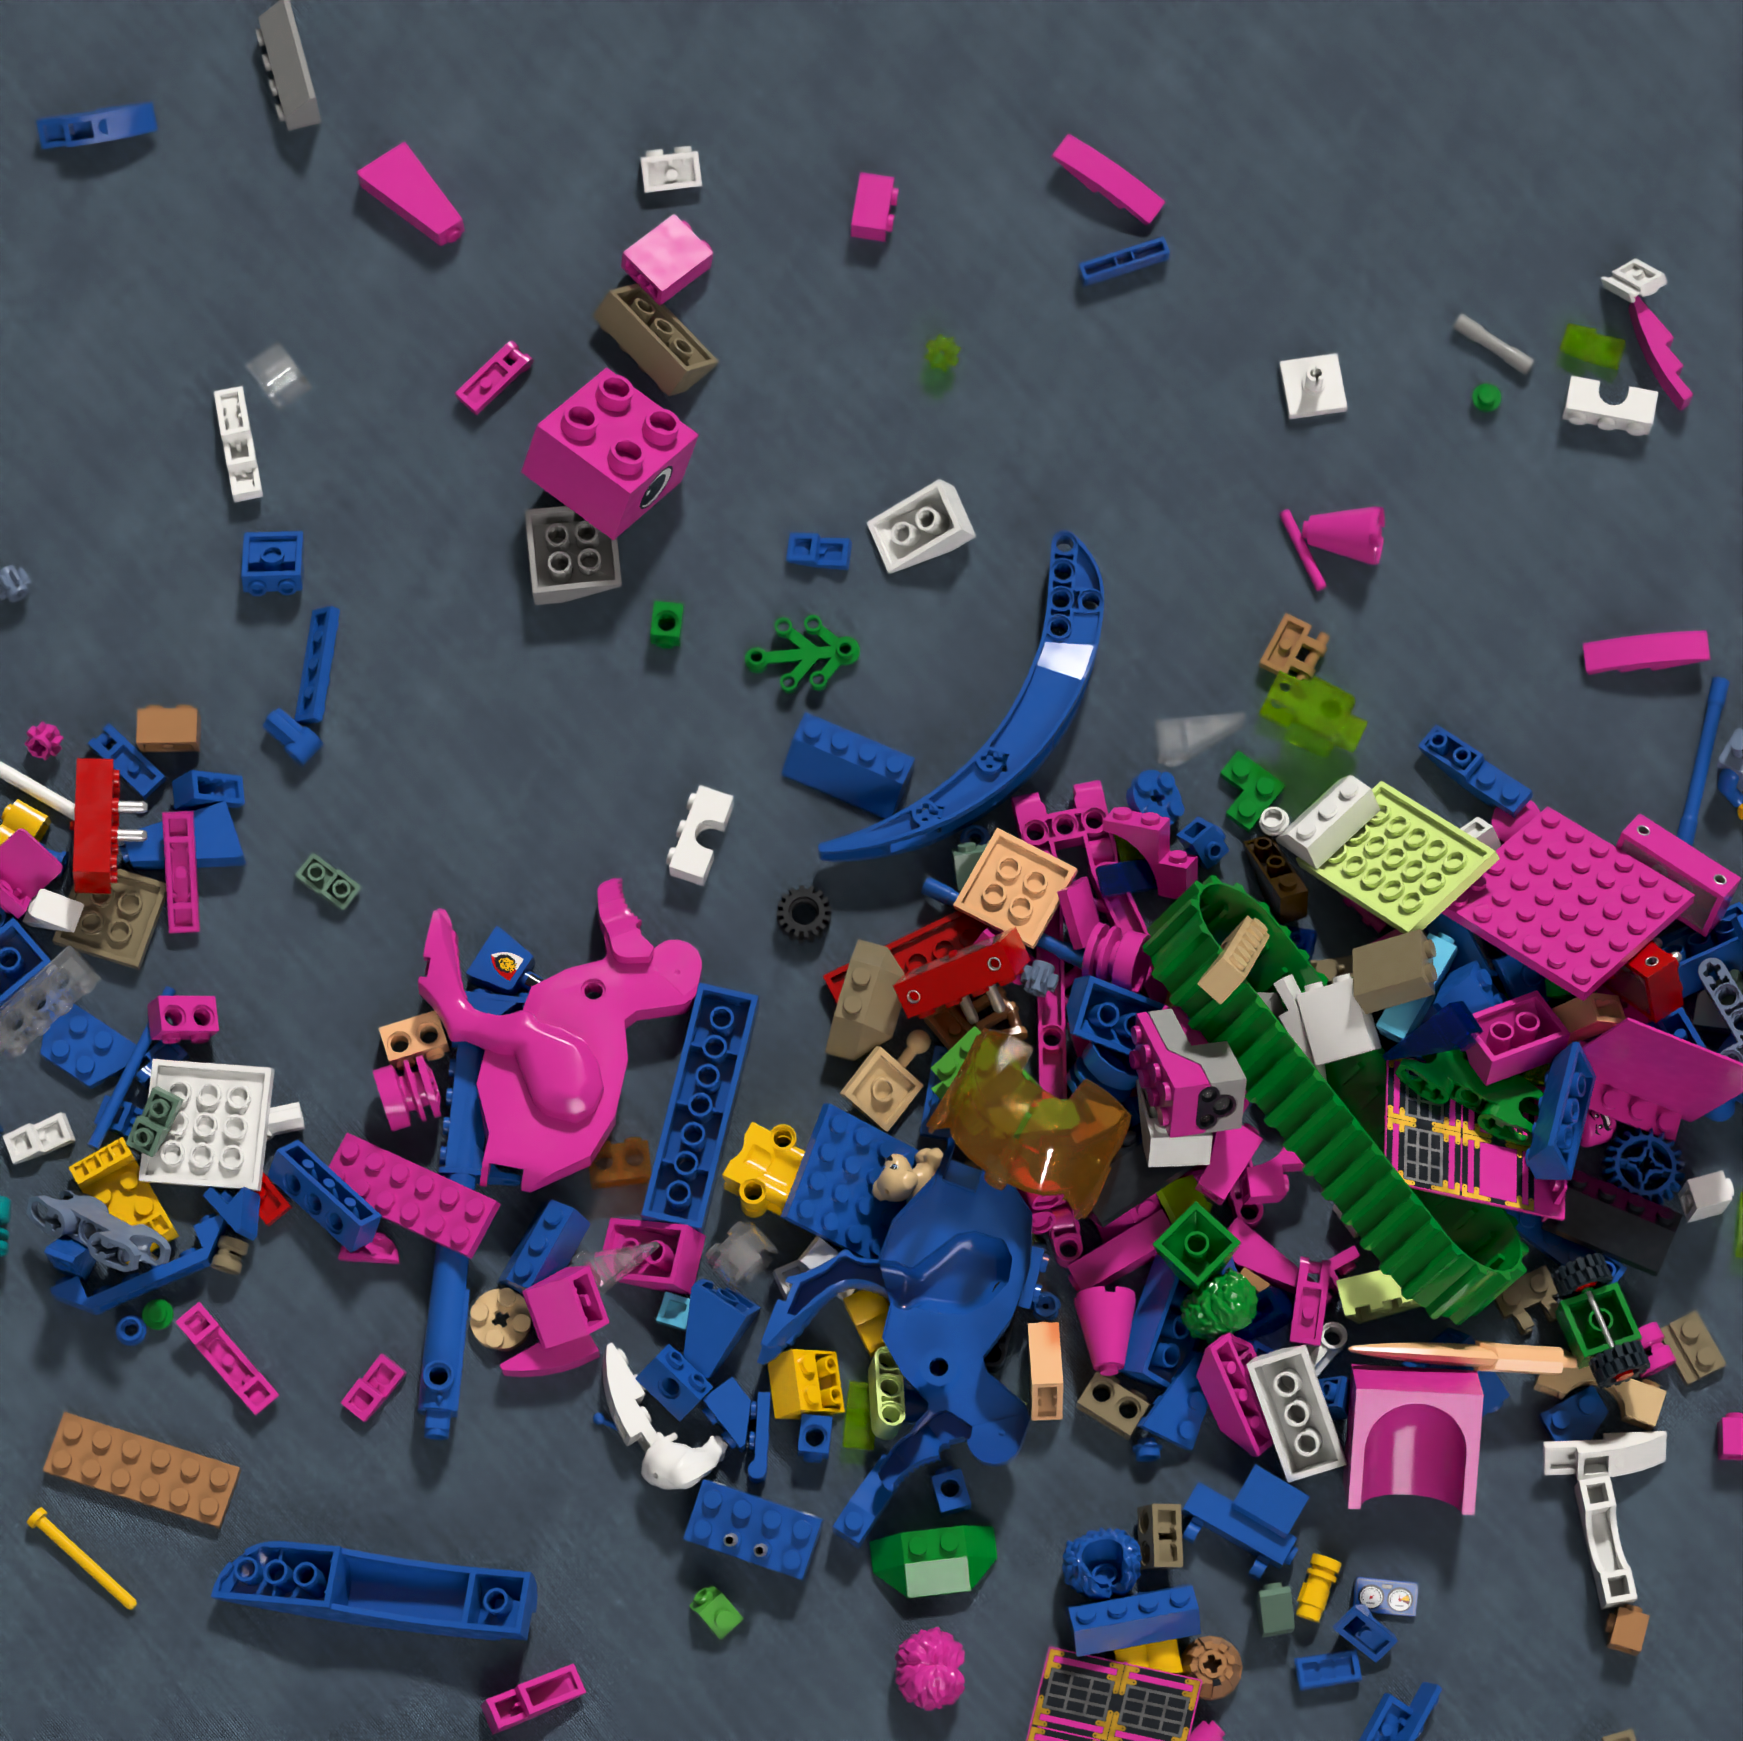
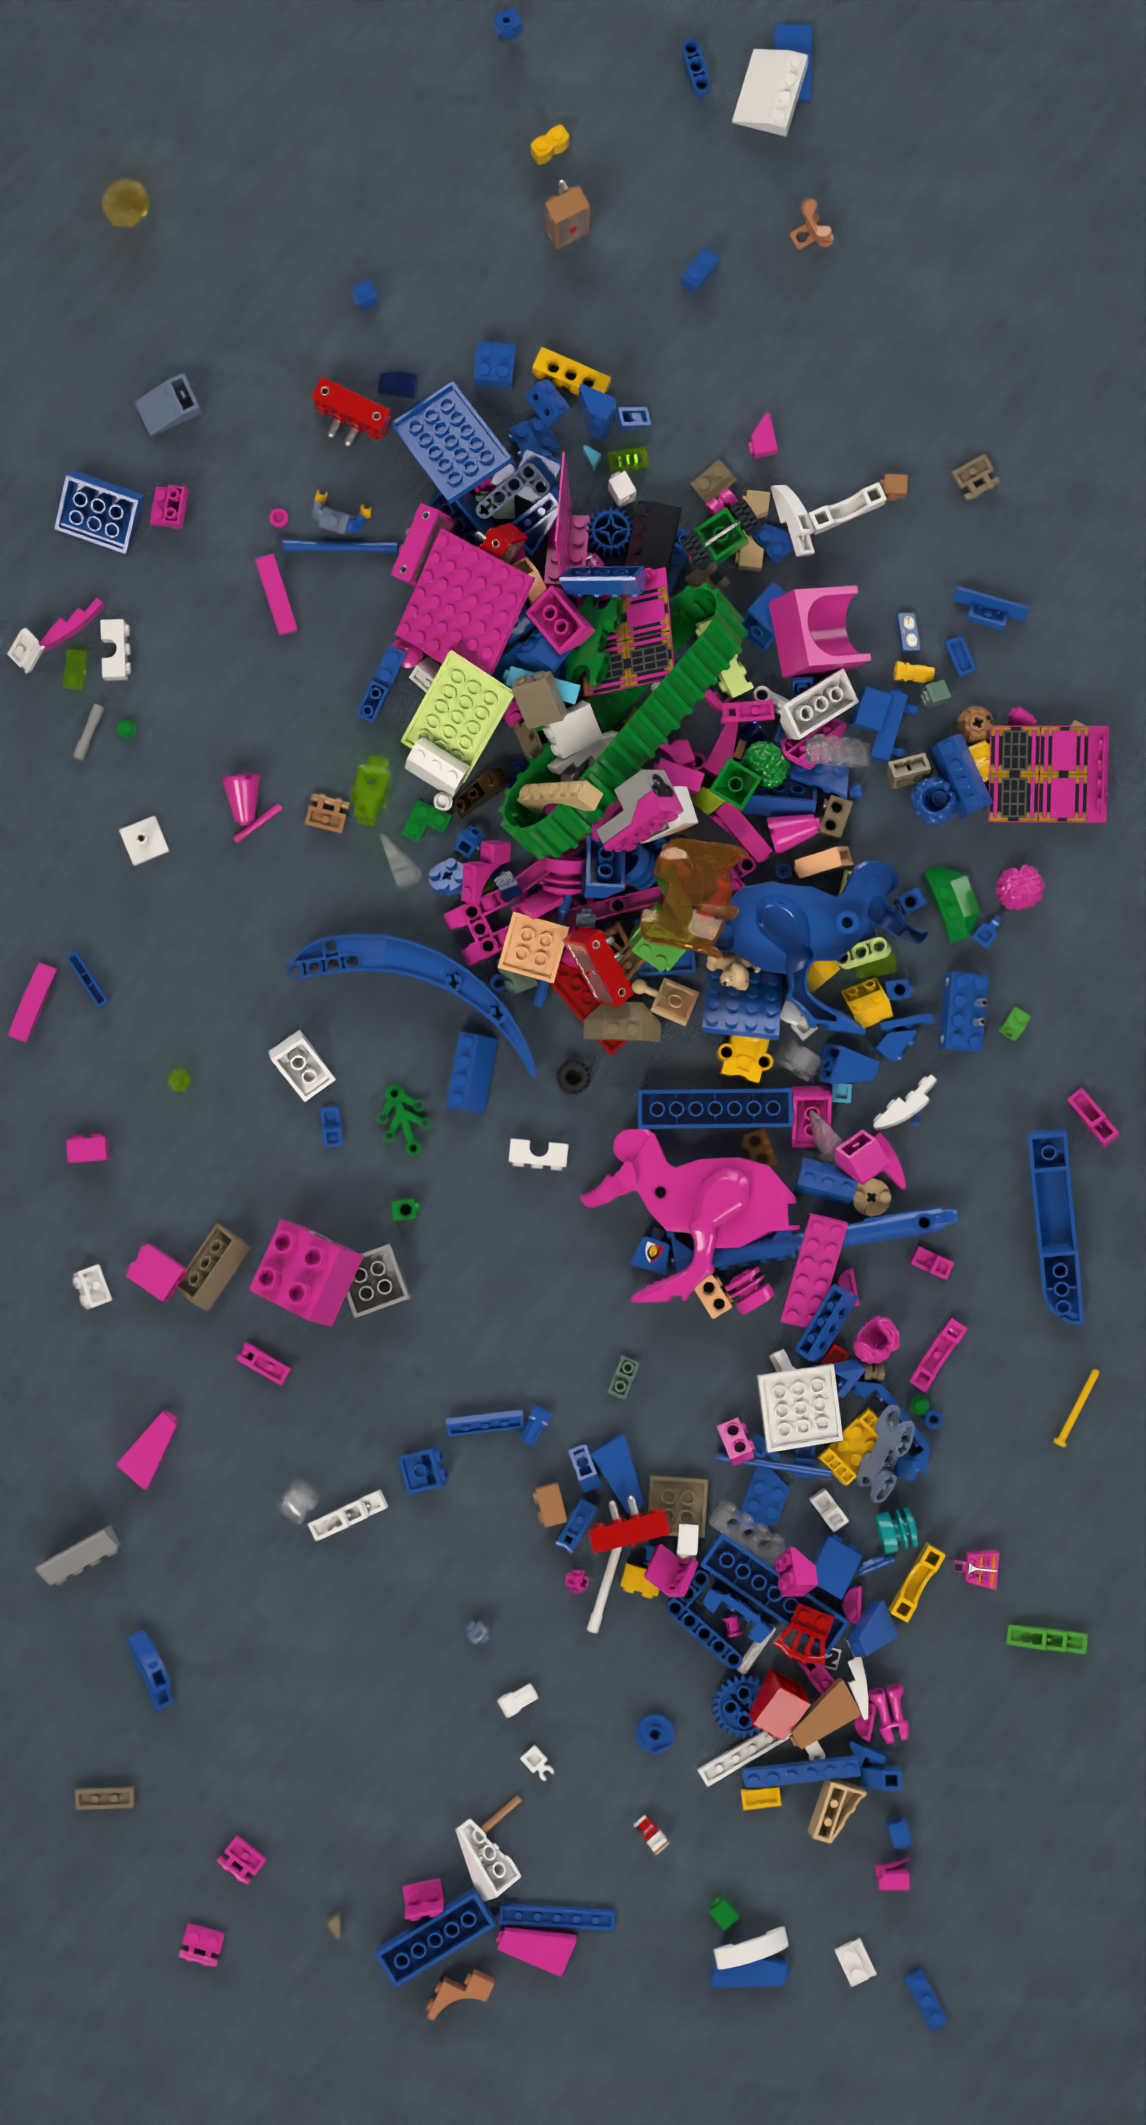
camera: 105 degrees left, 15 degrees up
(142, 1470) = (1015, 1388): medium nougat plate -> none
(155, 1122) = (807, 1439): sand green slope -> none
(181, 871) = (643, 1469): dark pink plate -> none
(276, 1265) = (876, 1340): none -> dark pink hair
(674, 1382) = (887, 1081): blue brick -> none
(678, 1465) = (938, 1064): white piece -> none
(864, 1508) = (932, 950): blue slope -> none
(871, 1600) = (986, 933): none -> blue plate
(1031, 1289) = (763, 878): blue wing -> none
(1224, 1382) = (837, 751): none -> clear brick
(1365, 1632) = (934, 639): blue slope -> none
(1445, 1031) = (574, 662): clear blue slope -> none
(1481, 1356) = (758, 600): light nougat piece -> none

